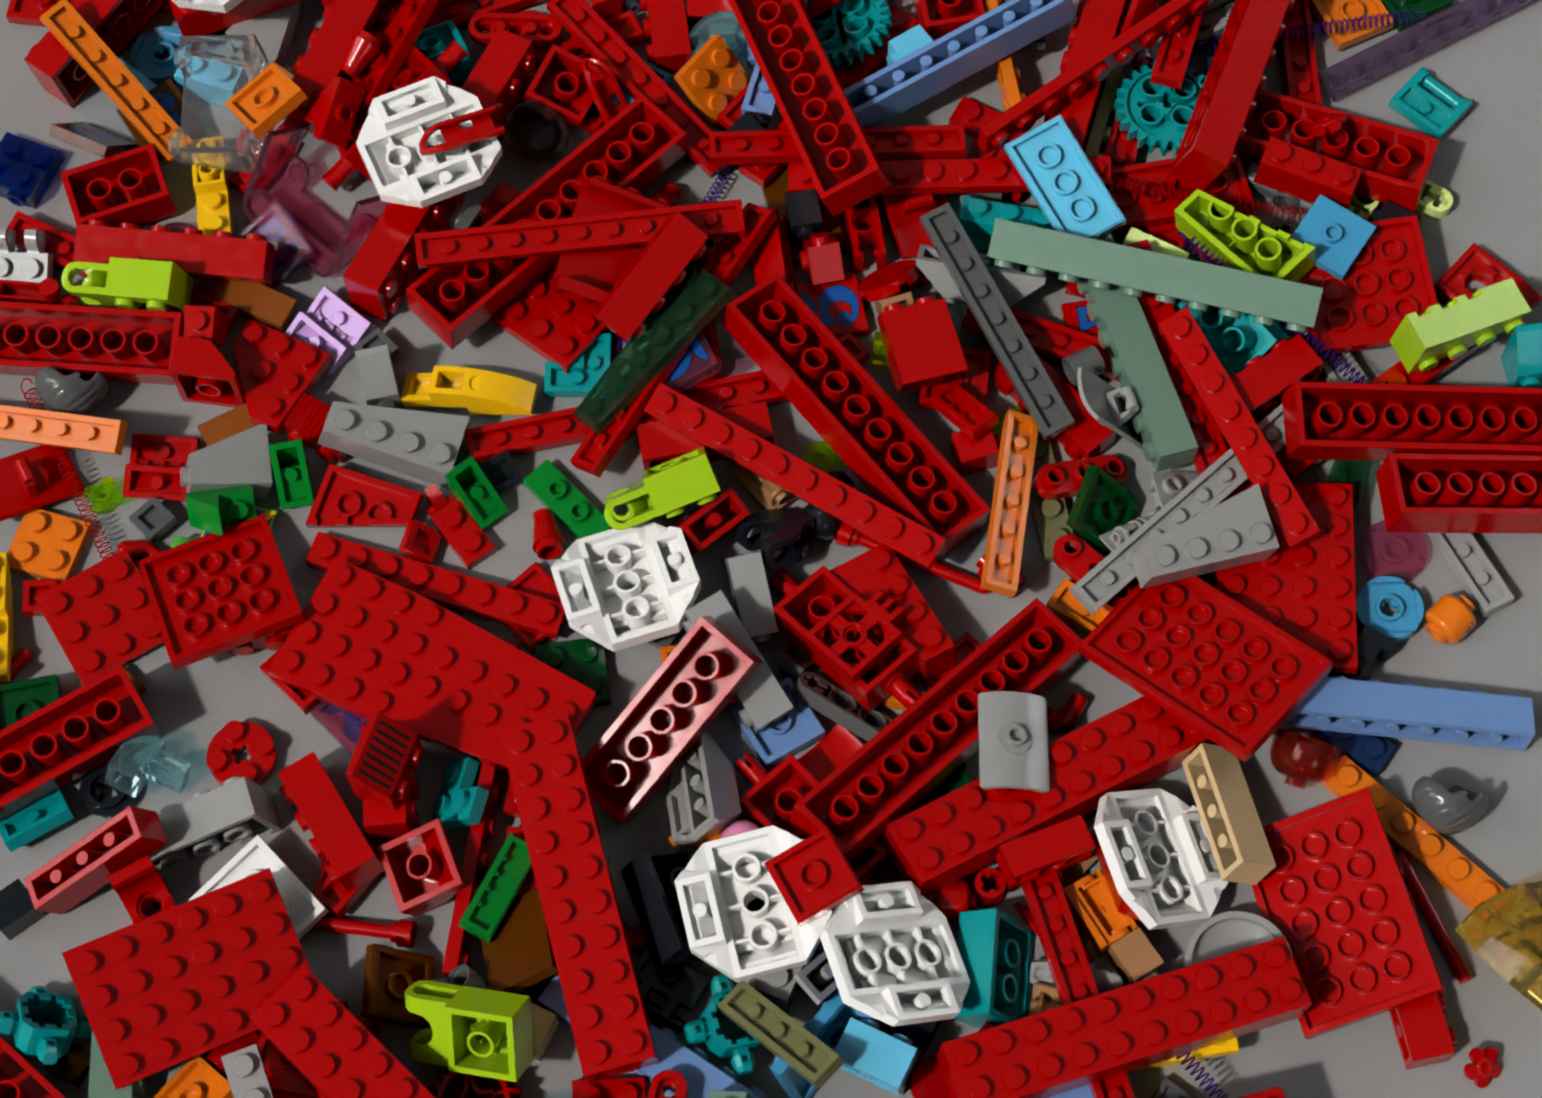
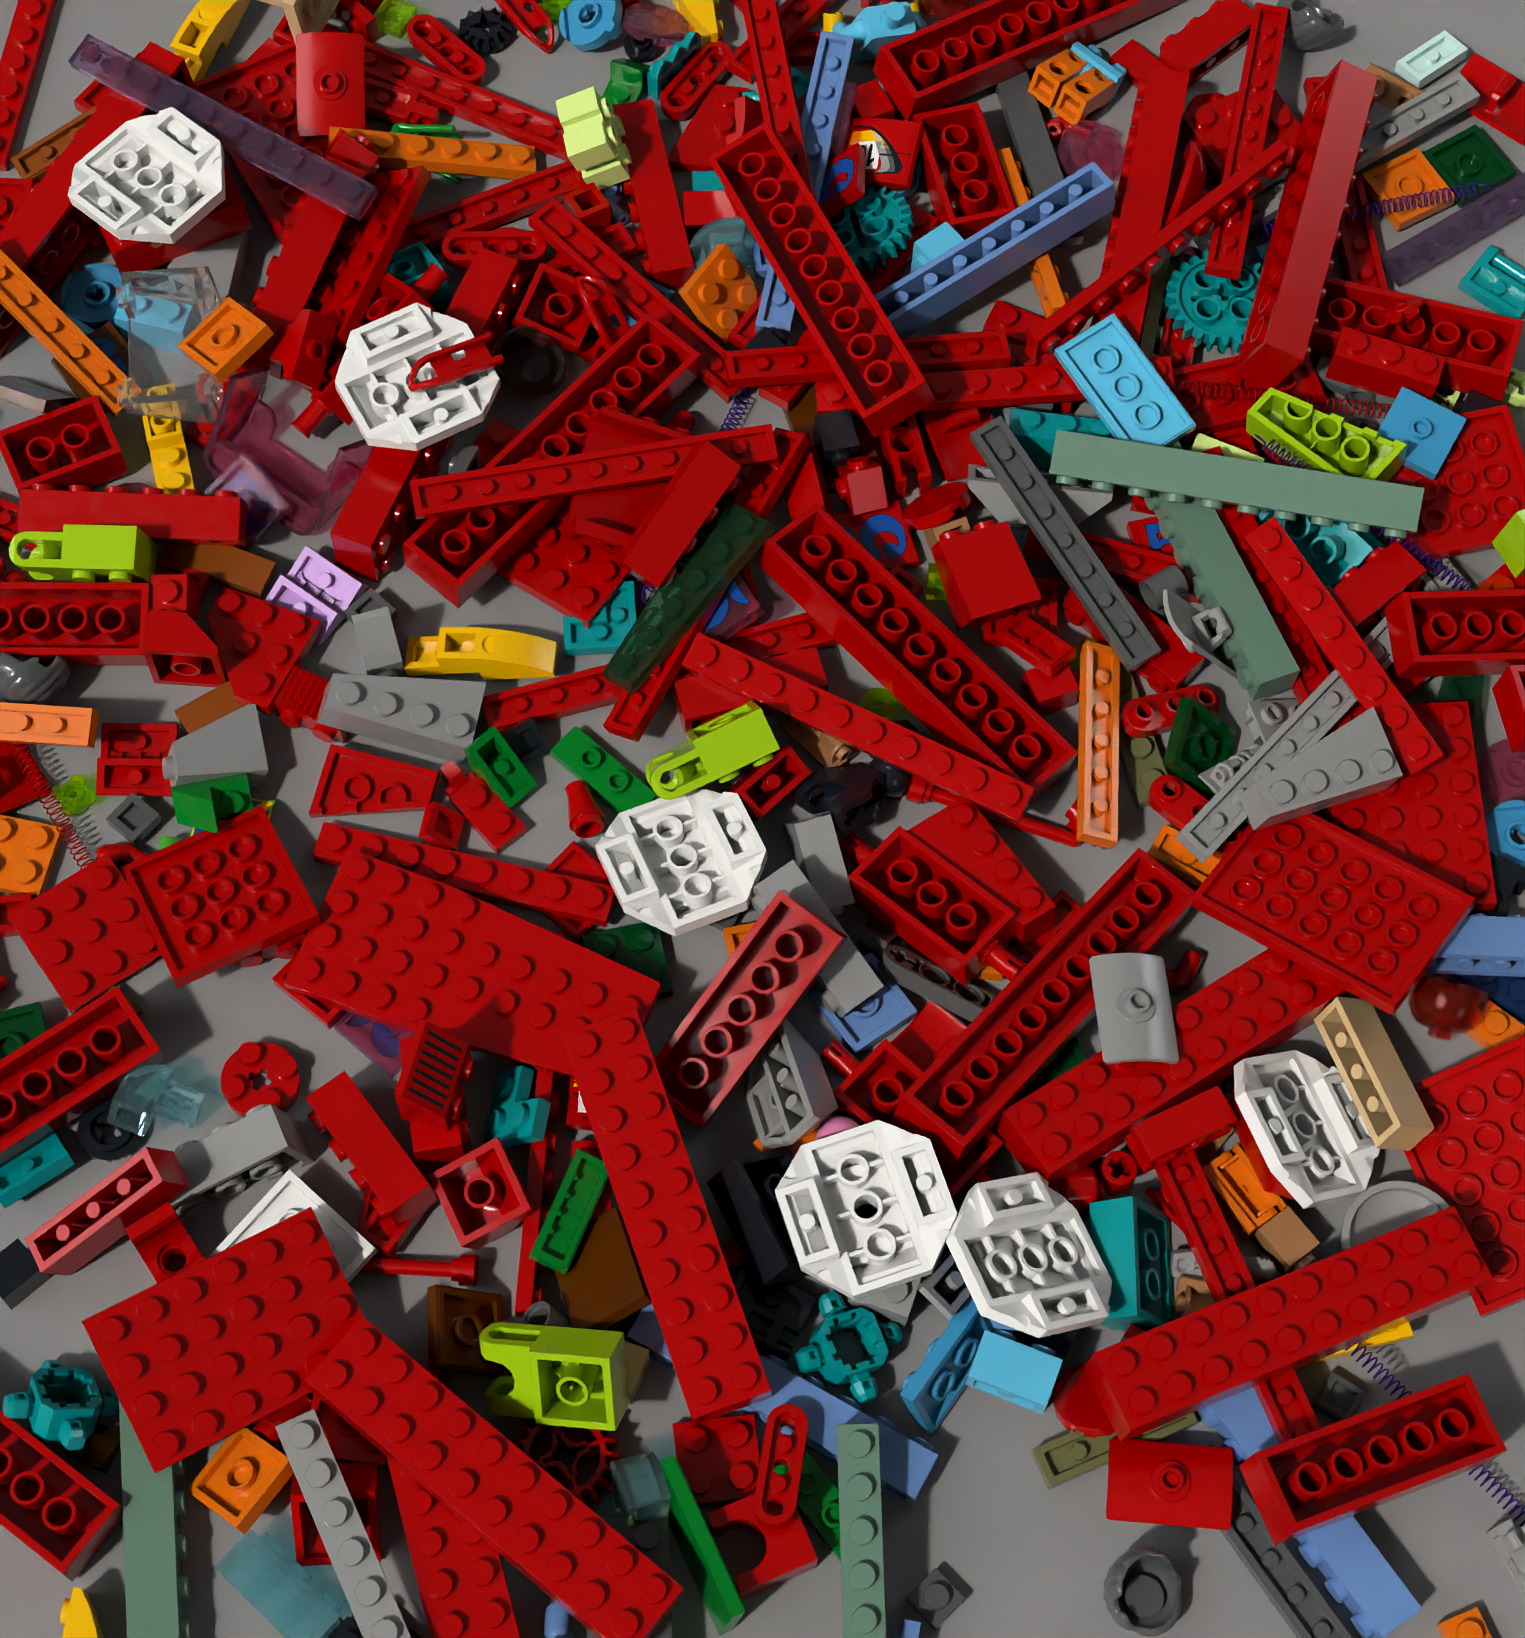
camera: 10 degrees left, 0 degrees up
(291, 473) = (288, 758): green slope -> none
(360, 53) = (327, 281): red cone -> none
(781, 1034) = (909, 1355): olive plate -> none
(813, 876) = (933, 1175): red tile -> none
(874, 614) = (964, 877): red piece -> none

